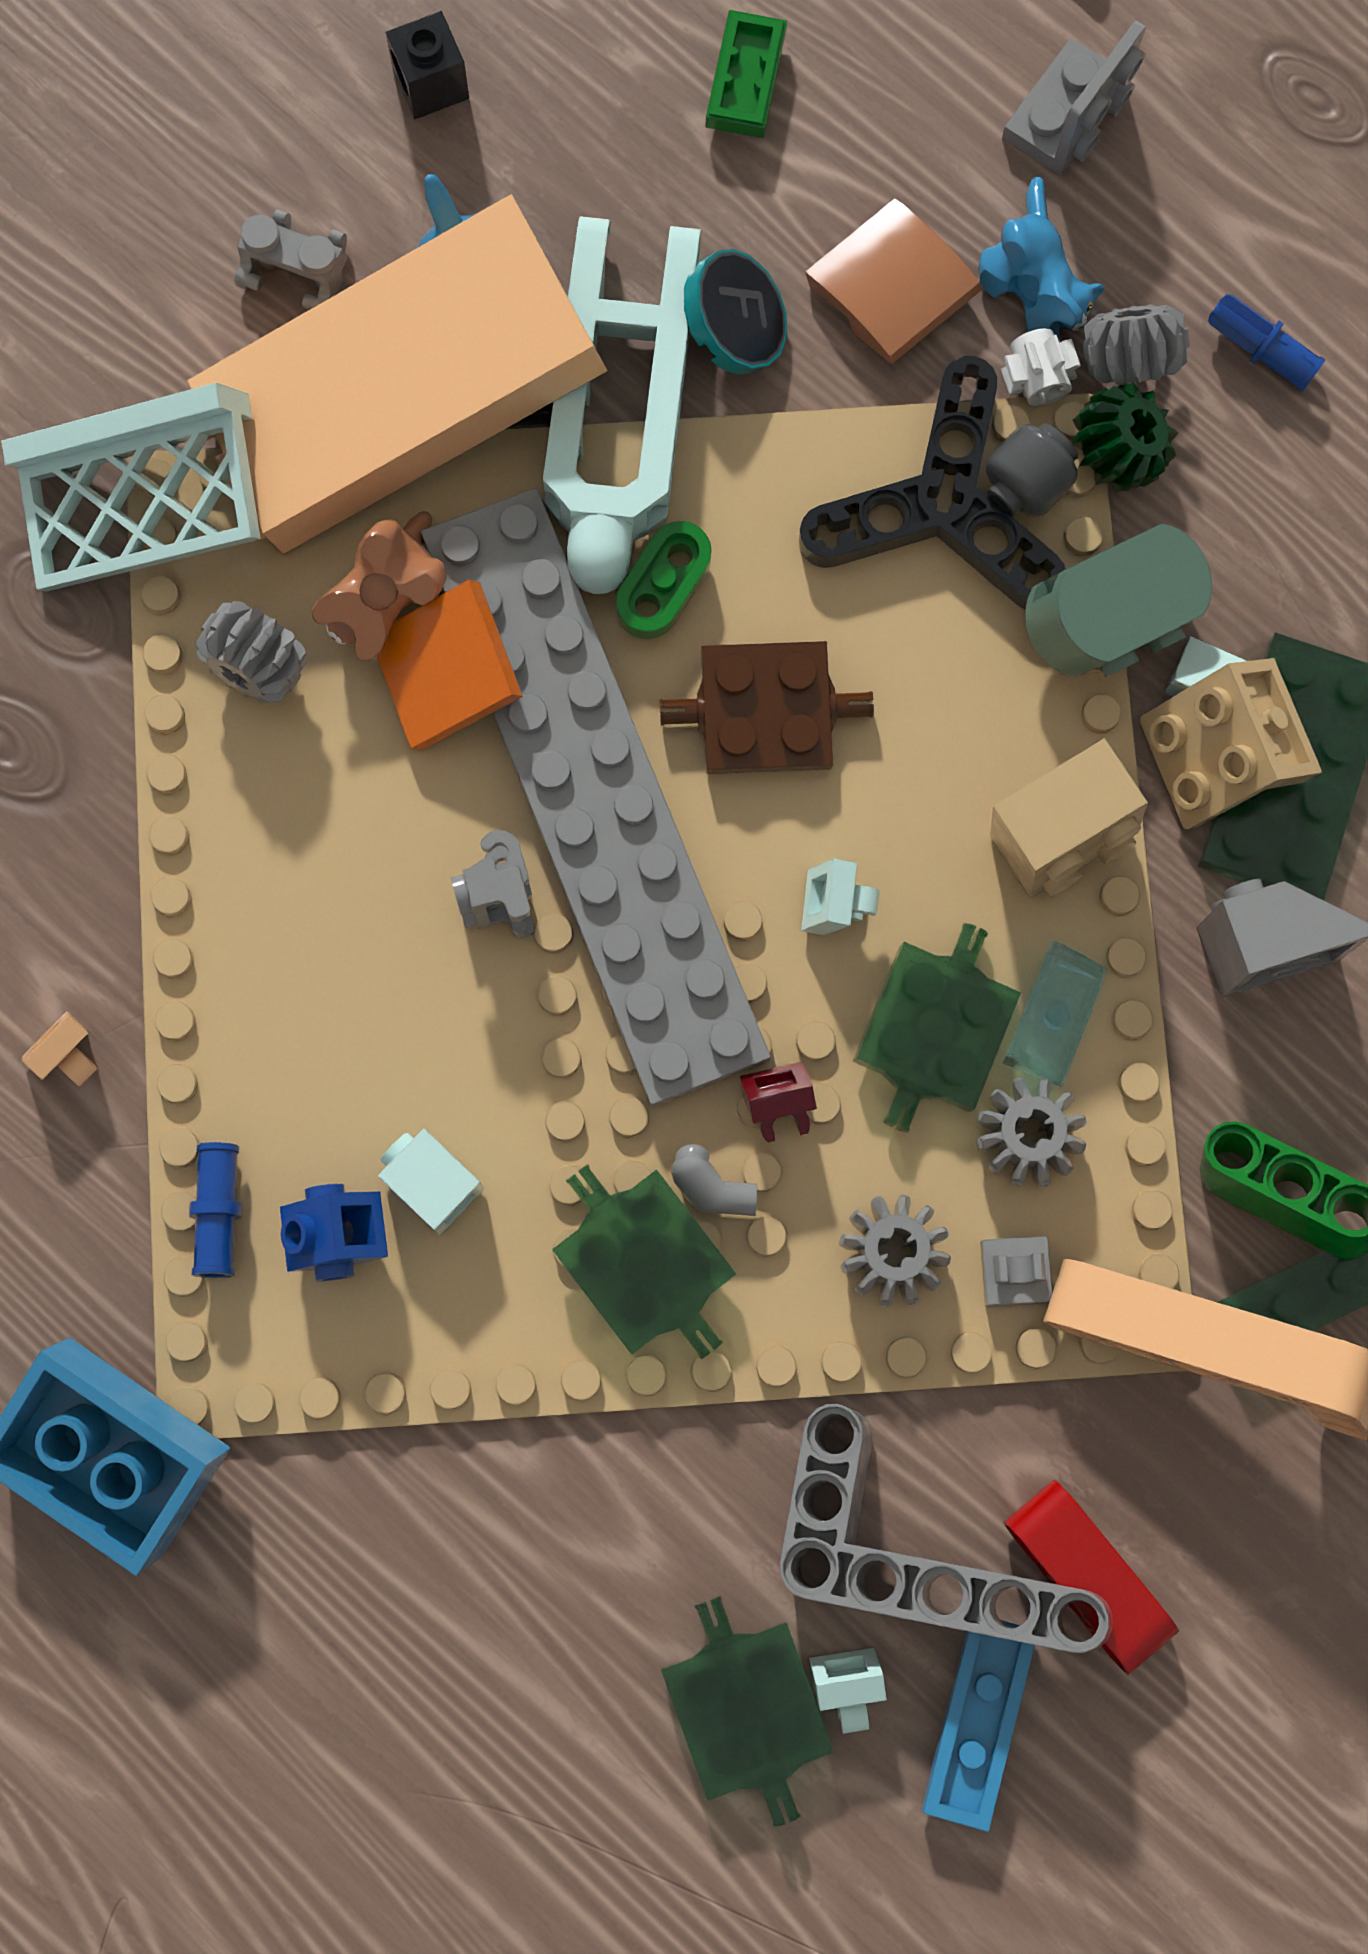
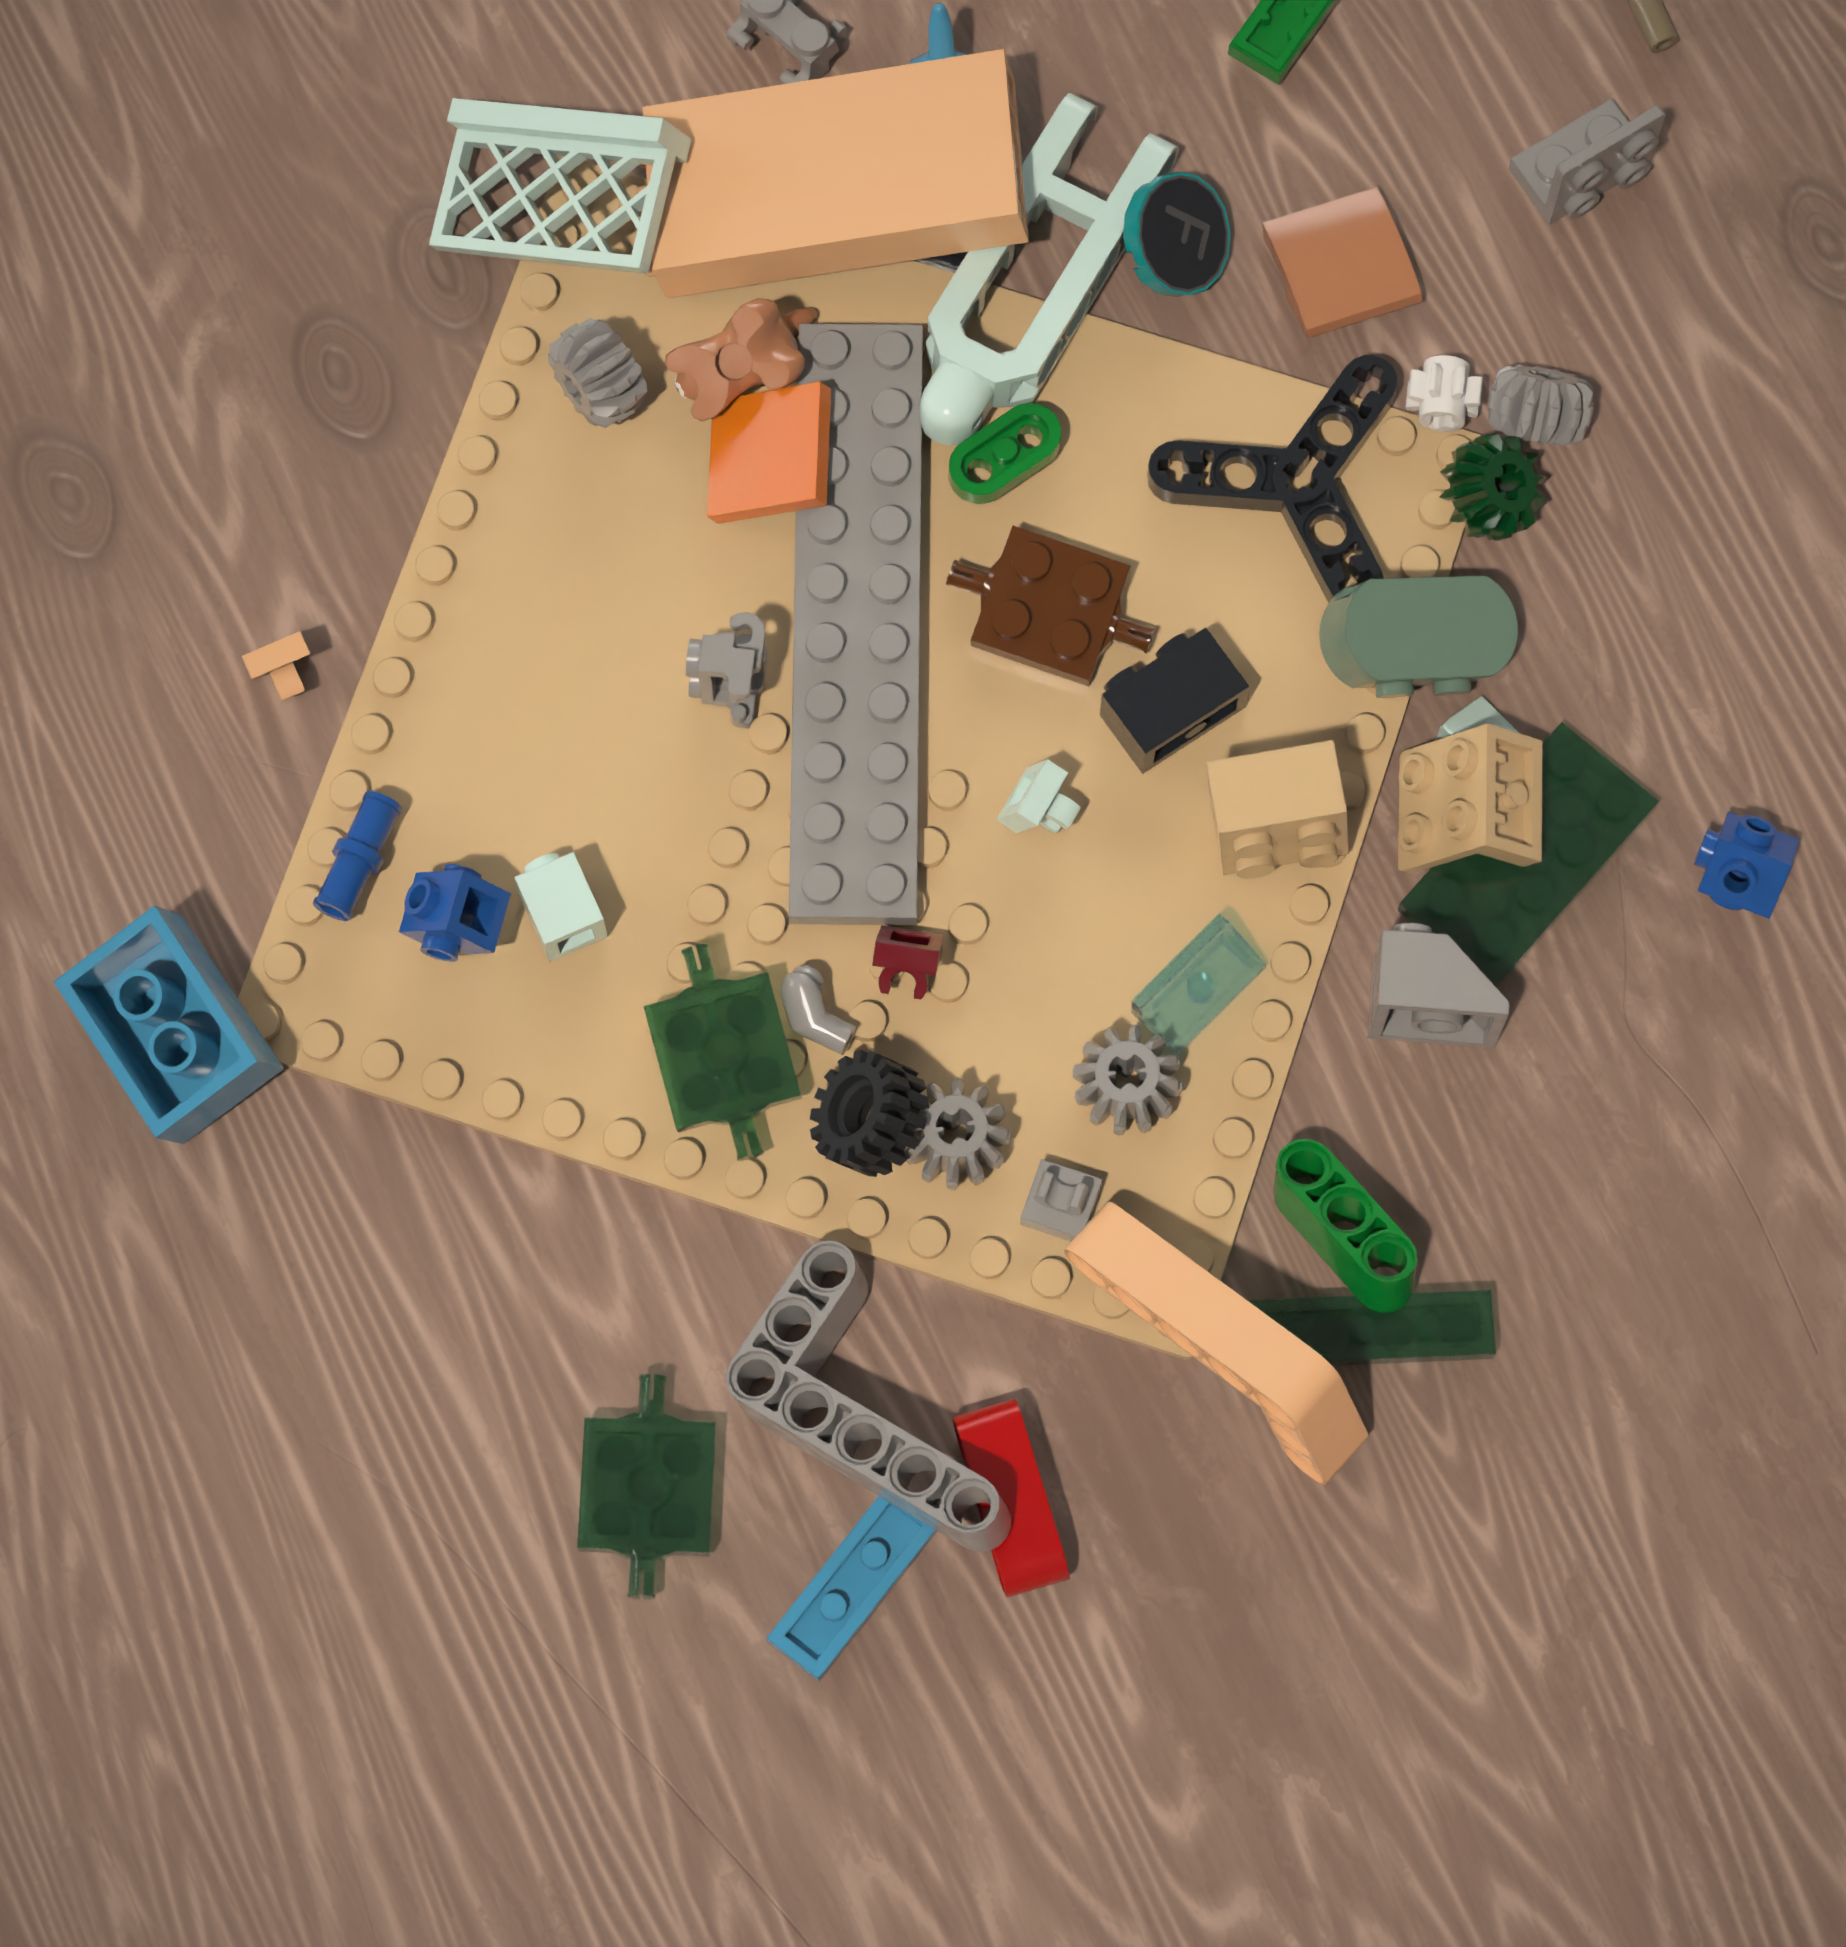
camera: 25 degrees right, 5 degrees down
(837, 1261) = (895, 1101): none -> black tyre
(847, 1684) = (748, 1500): light aqua tile -> none
(918, 752) = (1172, 698): none -> black brick
(936, 1027) = (1082, 953): clear green plate -> none
(1031, 470) = (1389, 483): dark grey head -> none
(1035, 269) = (1478, 296): dark azure animal -> none
(1265, 341) = (1672, 451): blue axle -> none

